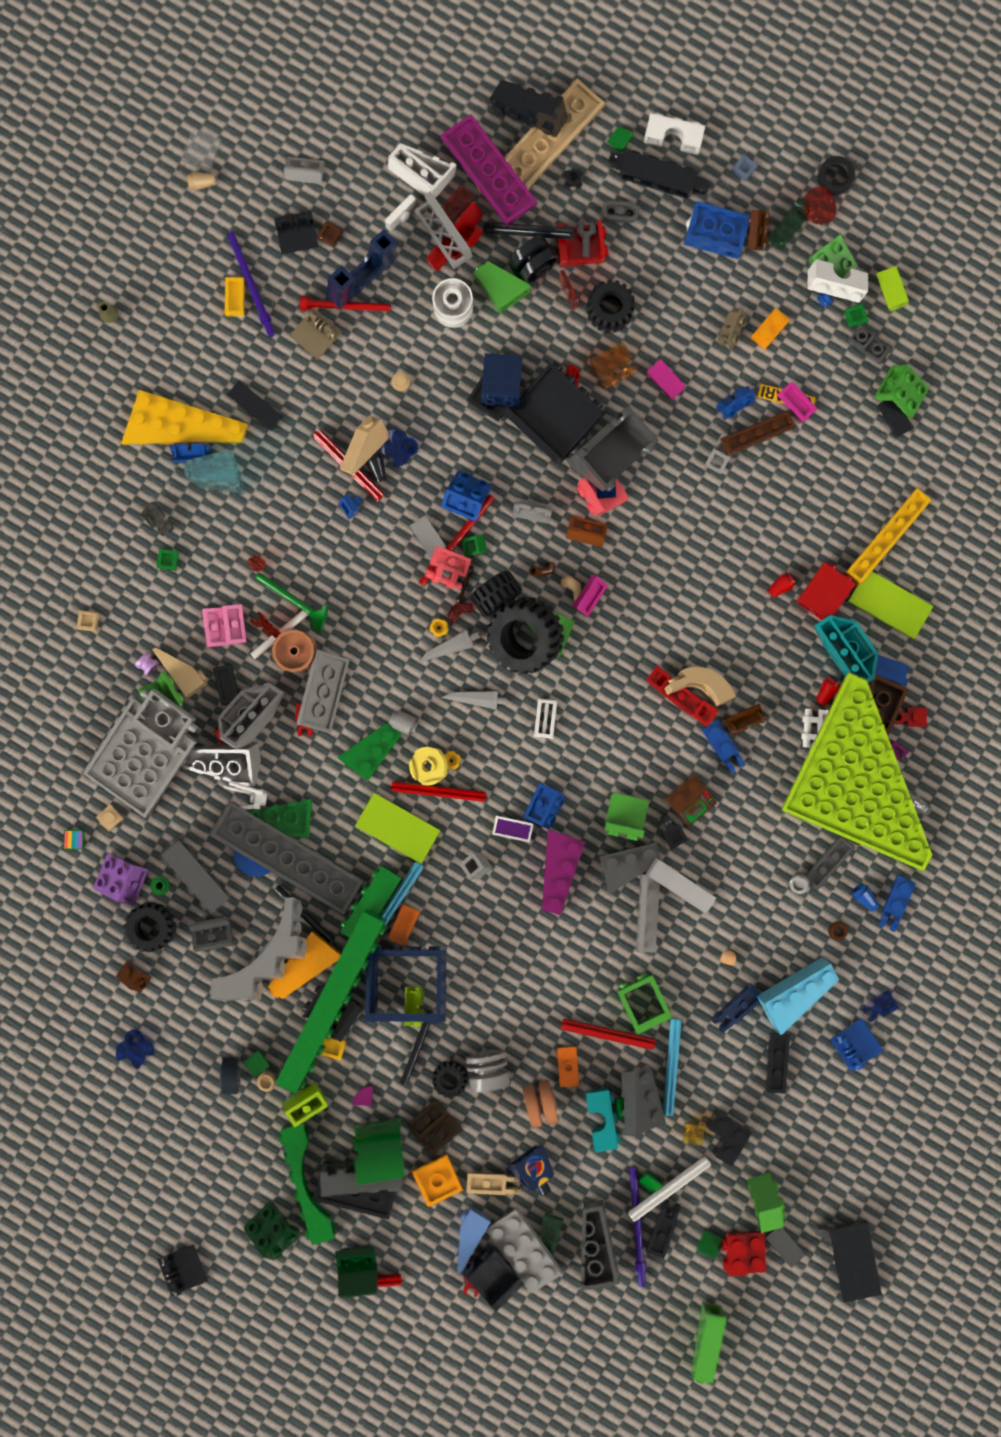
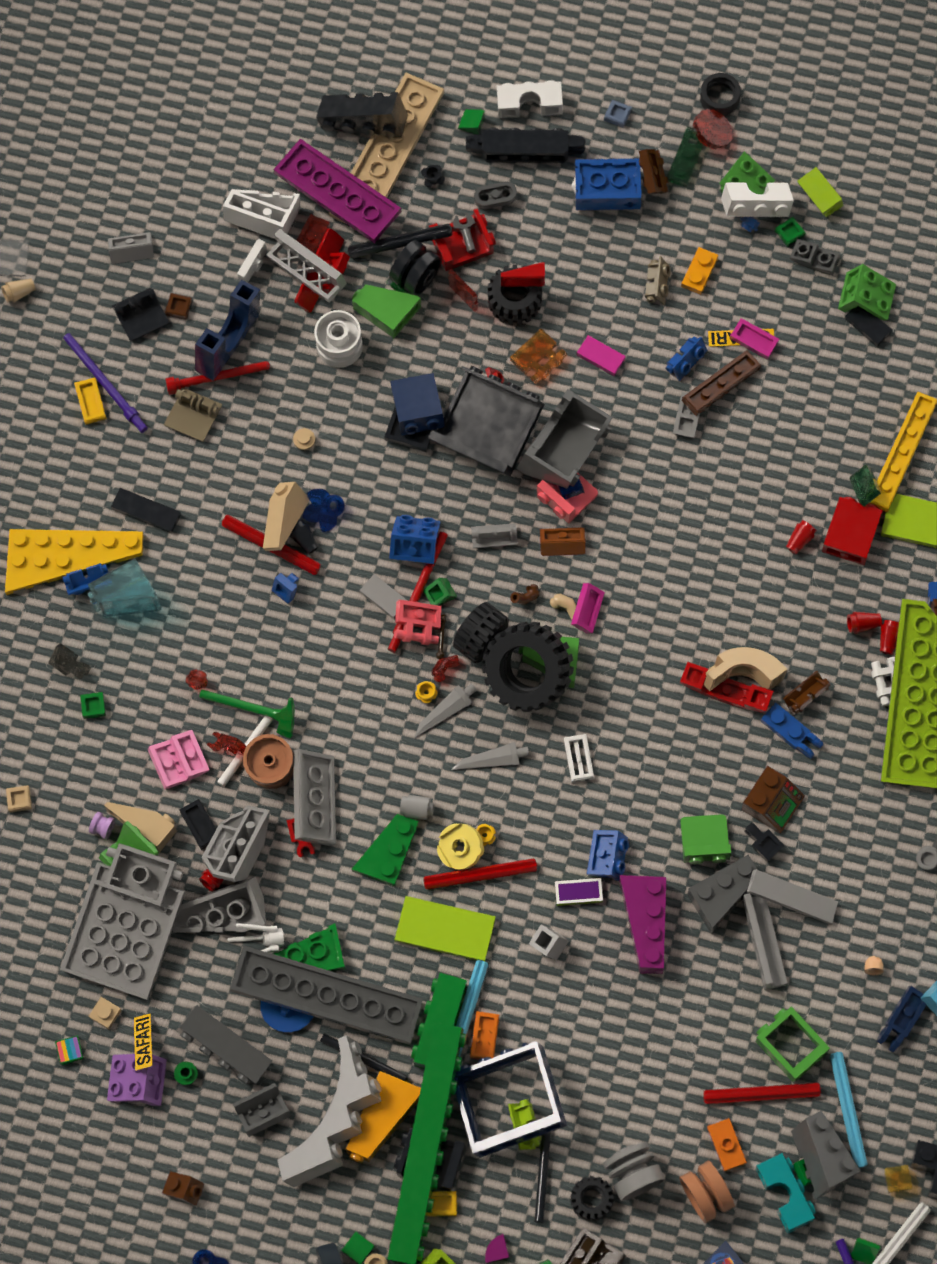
camera: 10 degrees left, 15 degrees down
(131, 853) = (143, 1041): none -> sticker
(134, 932) = (173, 1108): black tyre -> none
(624, 295) = (525, 276): none -> red slope
(809, 672) = (861, 621): none -> red cone
(848, 558) = (865, 485): none -> clear green plate
(848, 646) = (894, 577): teal wedge -> none

